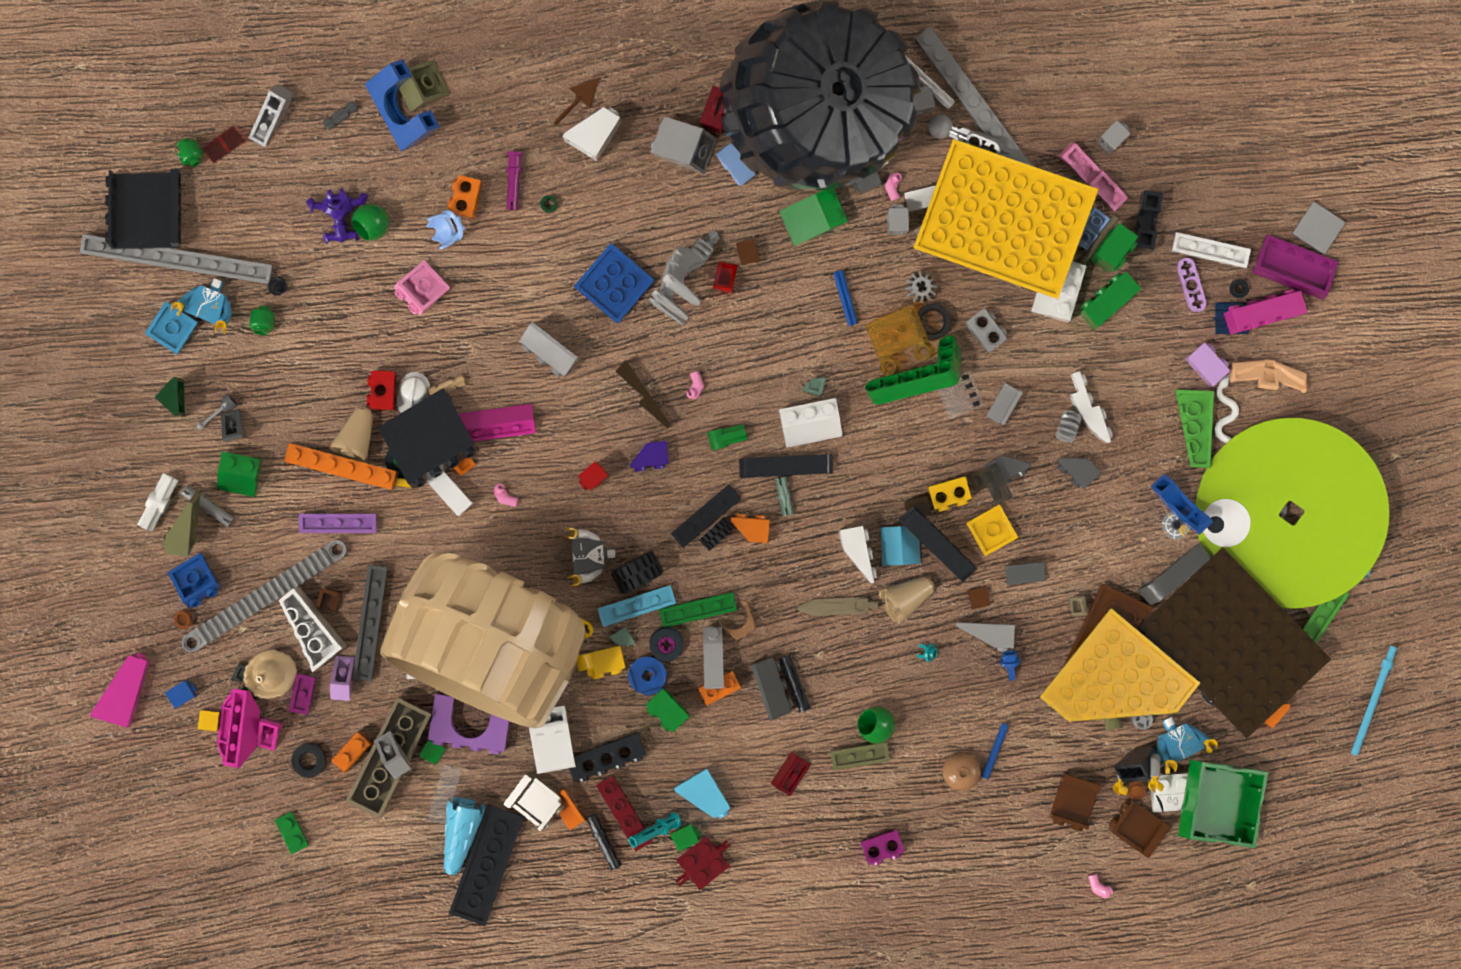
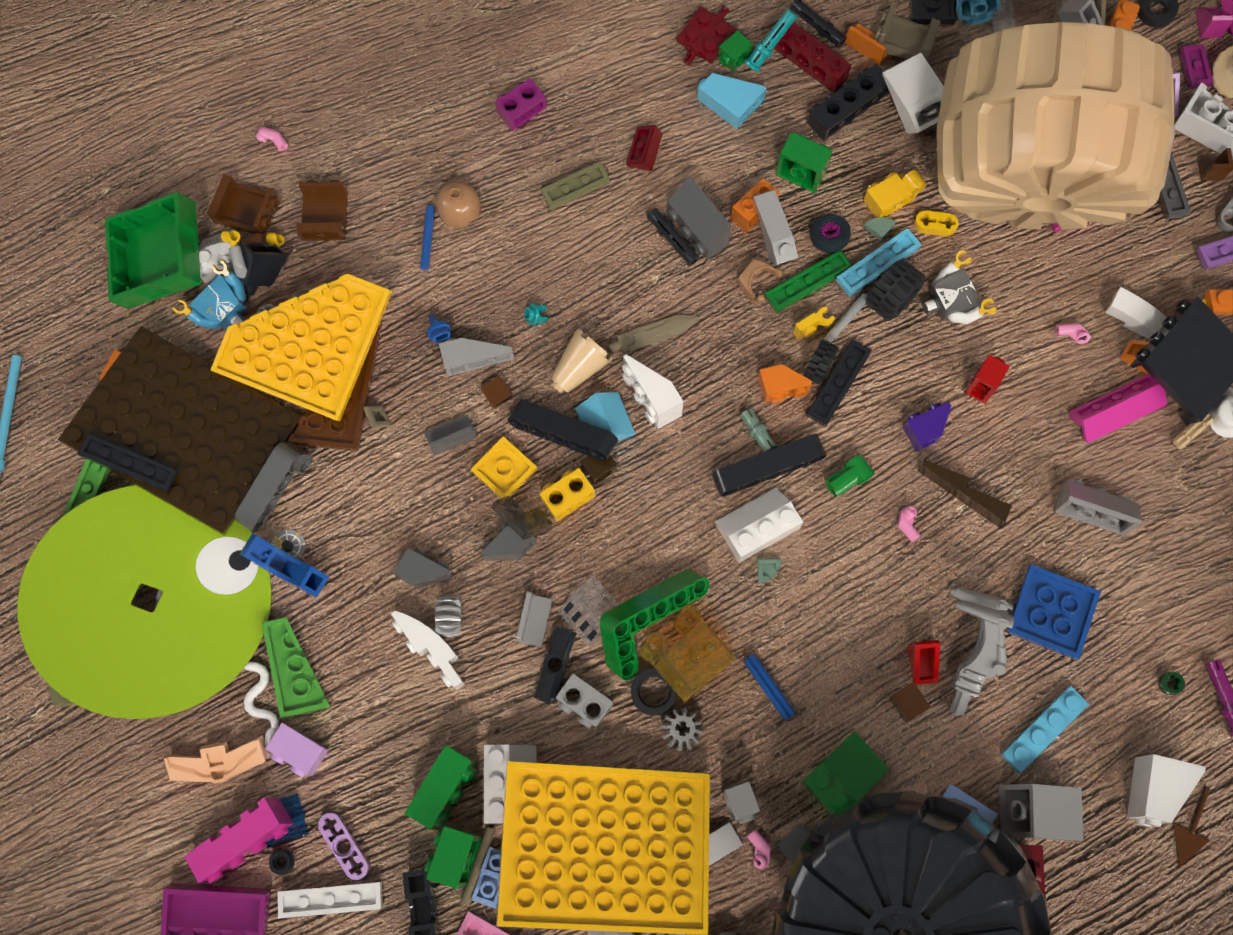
camera: 170 degrees right, 15 degrees down
(637, 670) = (839, 184): blue plate -> none
(655, 202) = (1044, 729): none -> medium azure plate
(681, 566) = (847, 317): none -> light grey bar
(714, 568) = (809, 325): none -> yellow plate
(876, 724) = (568, 217): green helmet -> none
(1006, 354) = (559, 650): none -> black piece
(1281, 622) = (128, 462): none -> black tile

